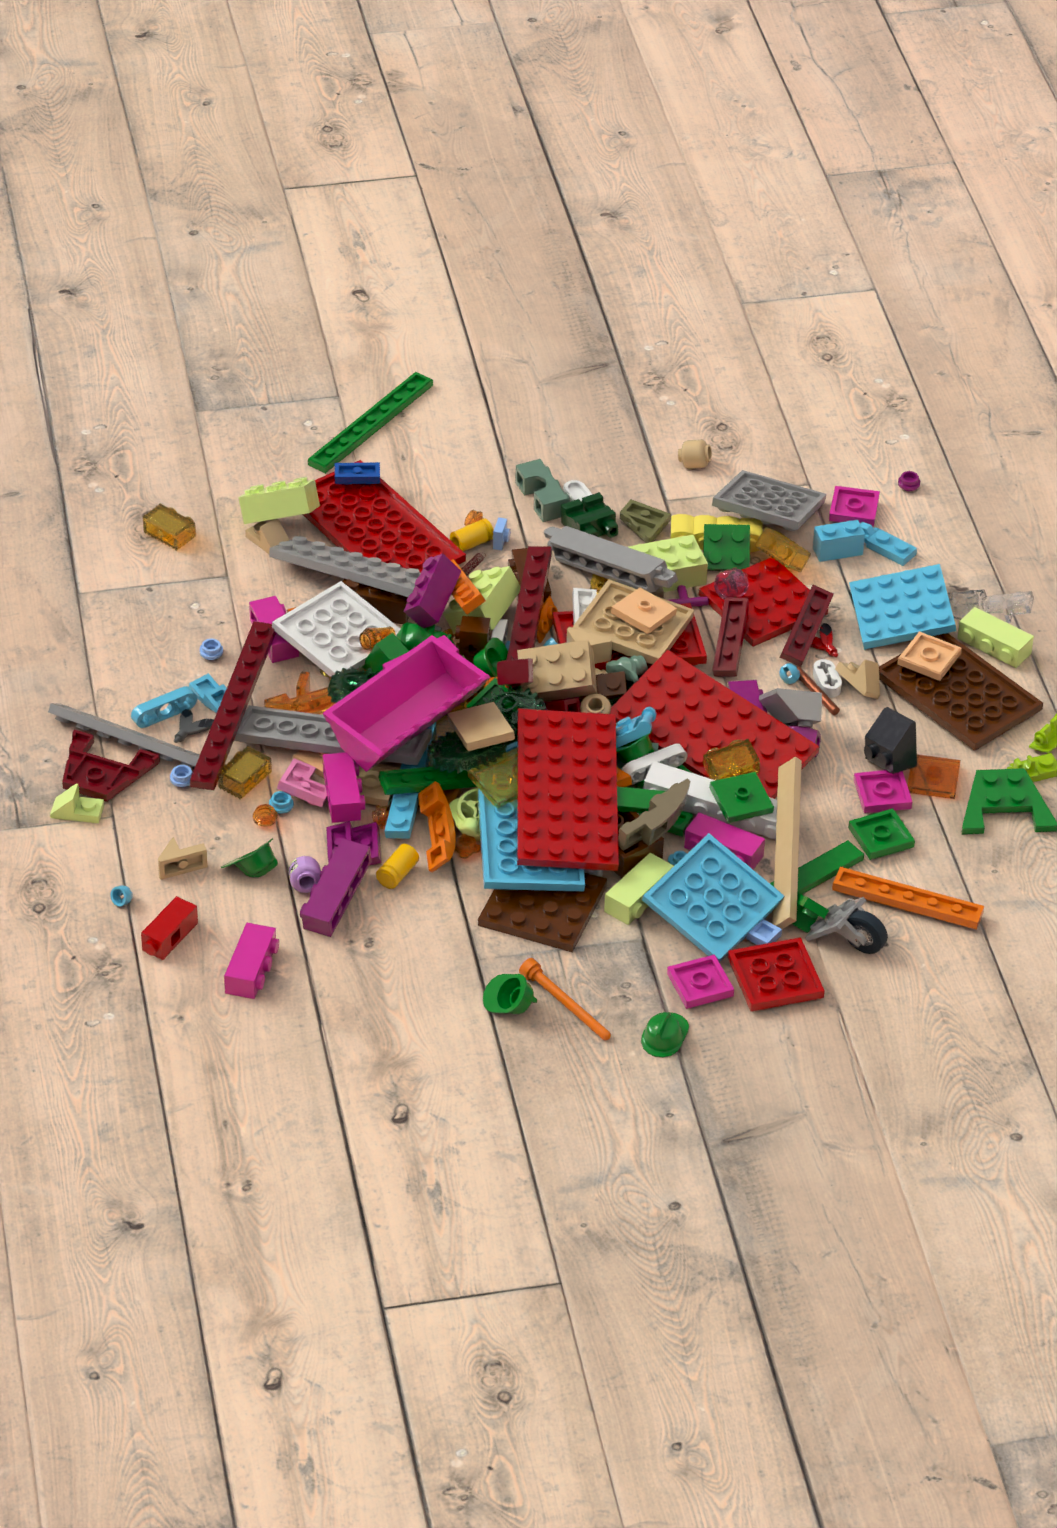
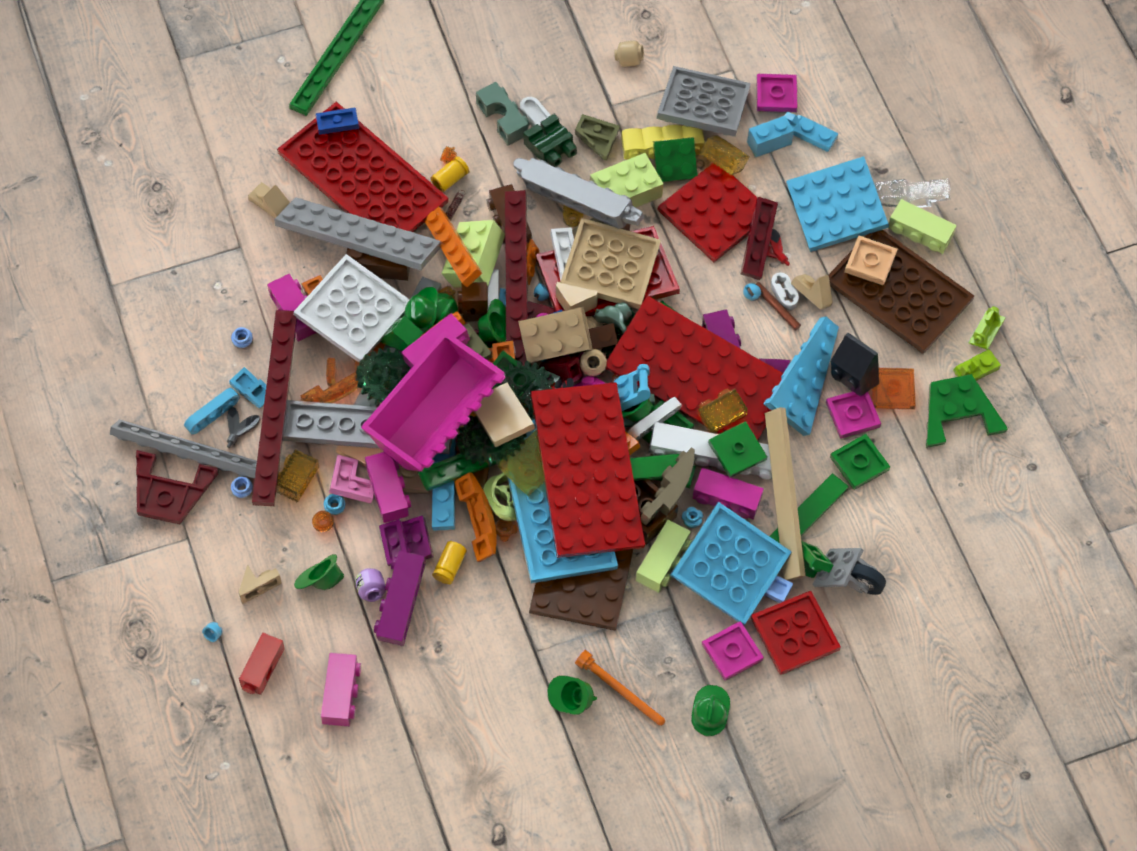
camera: 10 degrees left, 20 degrees up
(75, 808) = (149, 535): yellowish green slope -> none
(169, 526) = (179, 201): clear yellow brick -> none
(279, 500) = (274, 167): yellowish green brick -> none
(371, 636) = (388, 316): clear orange cone -> none
(380, 815) = (424, 506): clear orange plate -> none
(432, 591) = (431, 261): magenta brick -> none
(500, 534) = (475, 169): light blue plate -> none
(515, 673) = (521, 349): dark red slope -> none
(643, 610) = (619, 252): light nougat plate -> none
(683, 598) = (647, 221): magenta piece -> none
(730, 637) = (695, 260): dark red plate -> none
(731, 583) = (687, 204): clear pink head -> none
(793, 706) = (767, 340): light grey slope -> none
(832, 751) = (805, 378): none -> medium azure wing
(908, 898) = (894, 530): orange plate -> none
(909, 481) = (819, 57): magenta plate -> none

